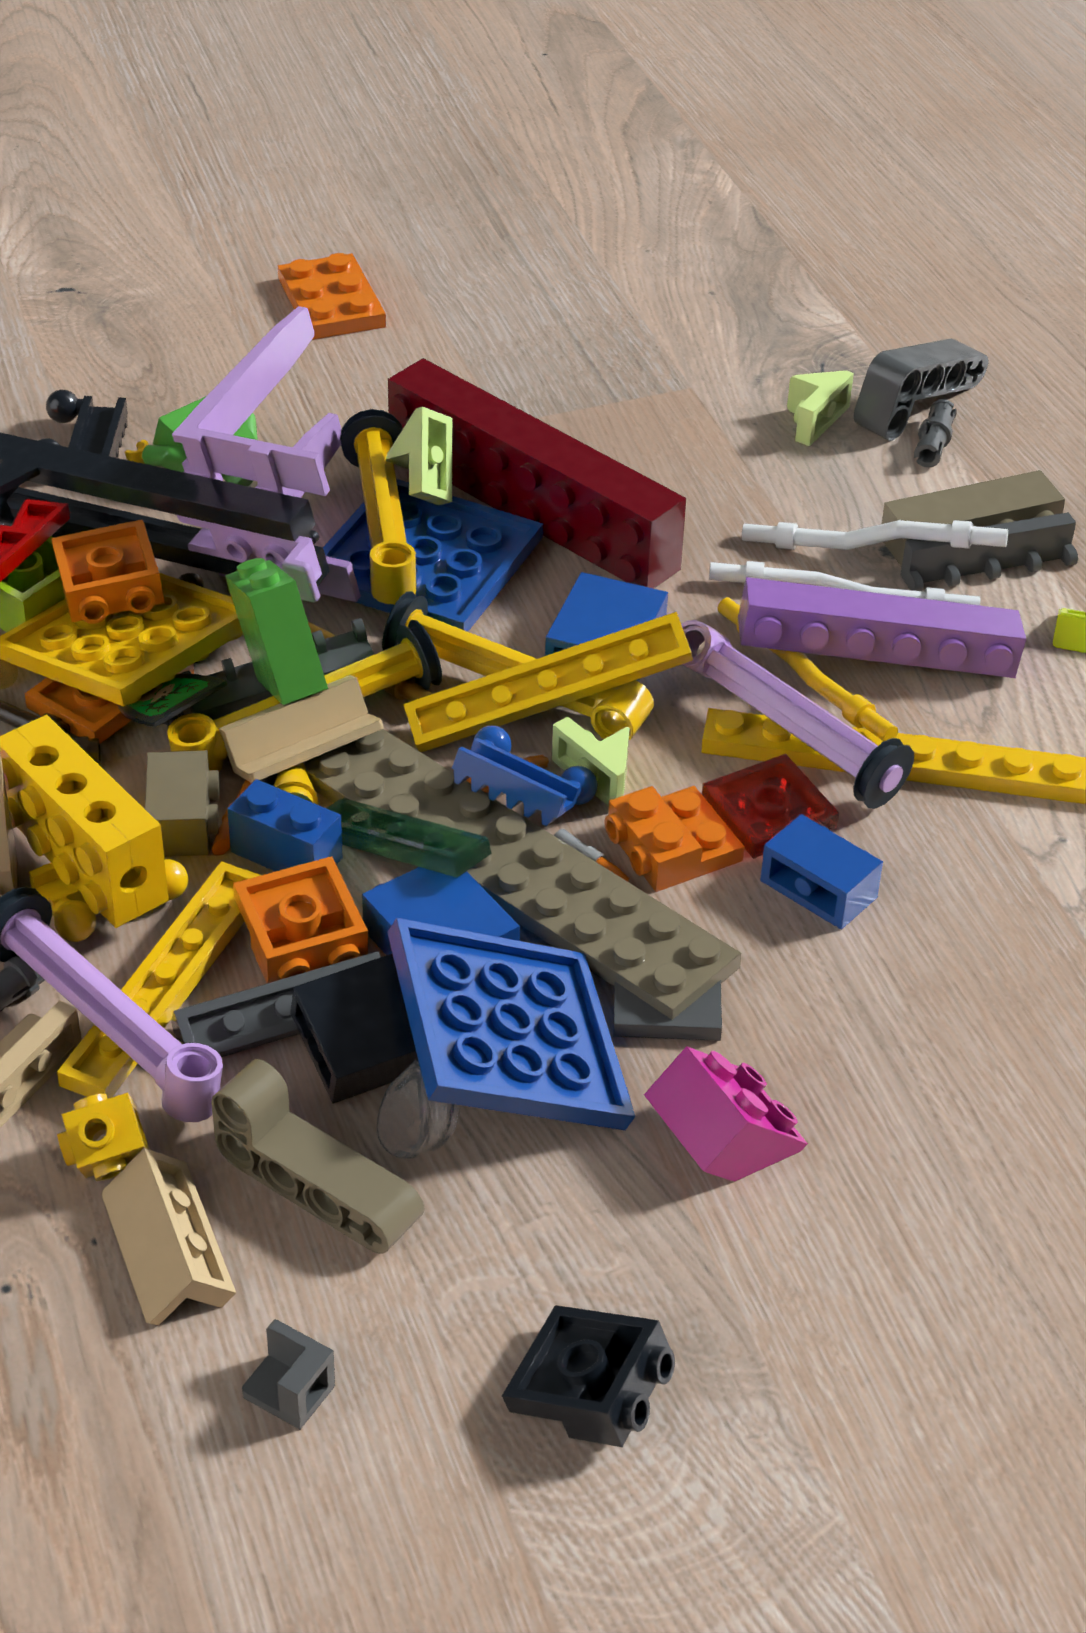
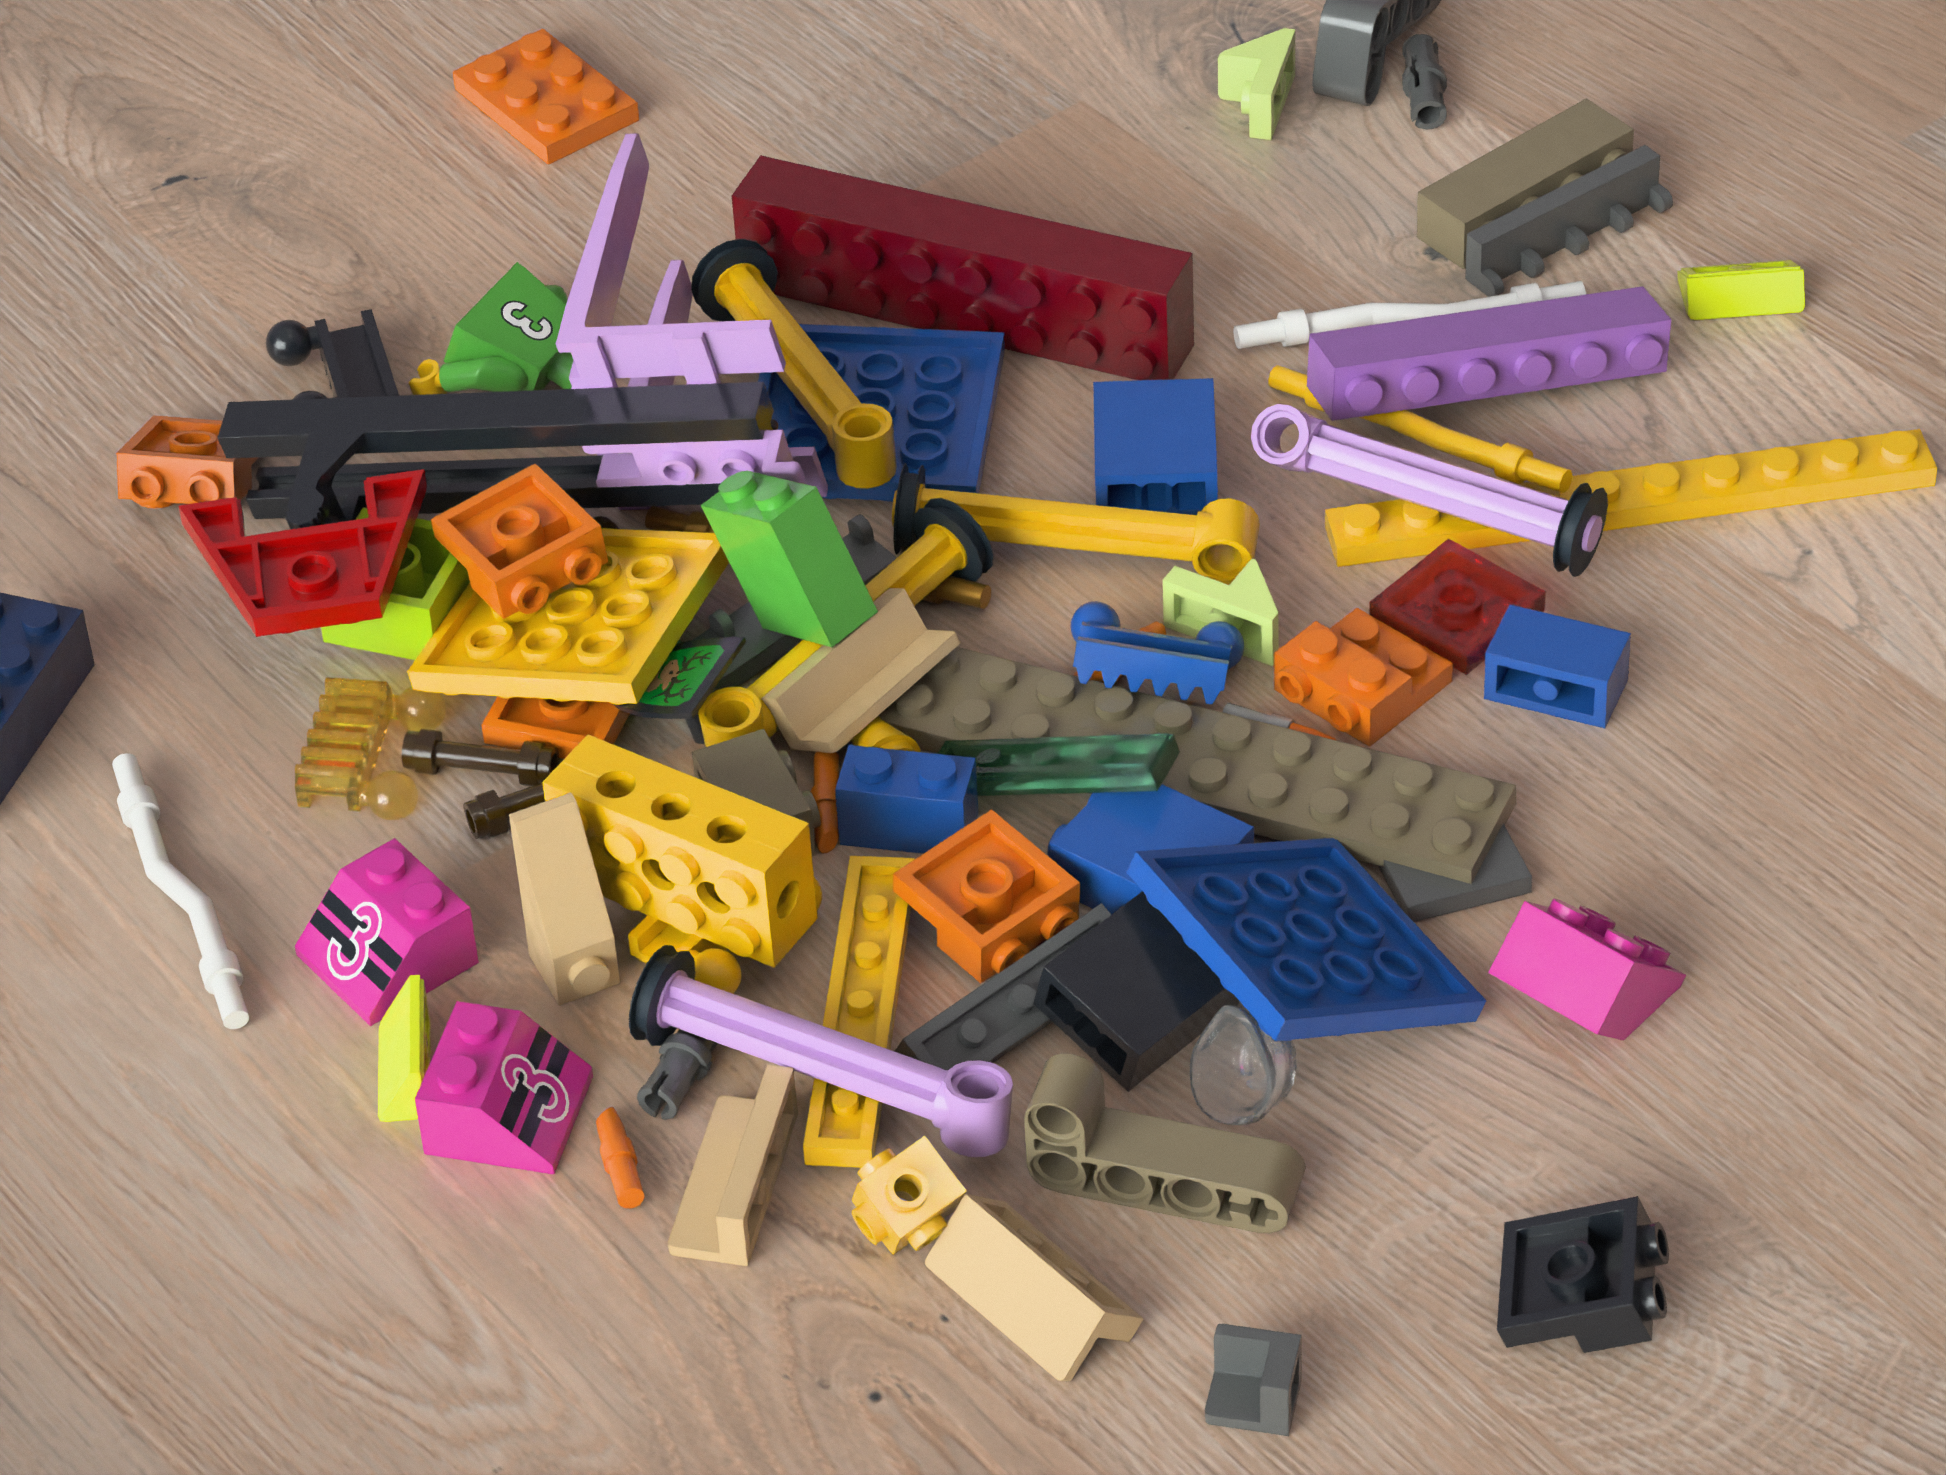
camera: 15 degrees left, 0 degrees up
(427, 452) = (827, 274): yellowish green slope -> none
(548, 682) = (1131, 530): yellow plate -> none
(959, 534) = (1533, 208): white bar -> none

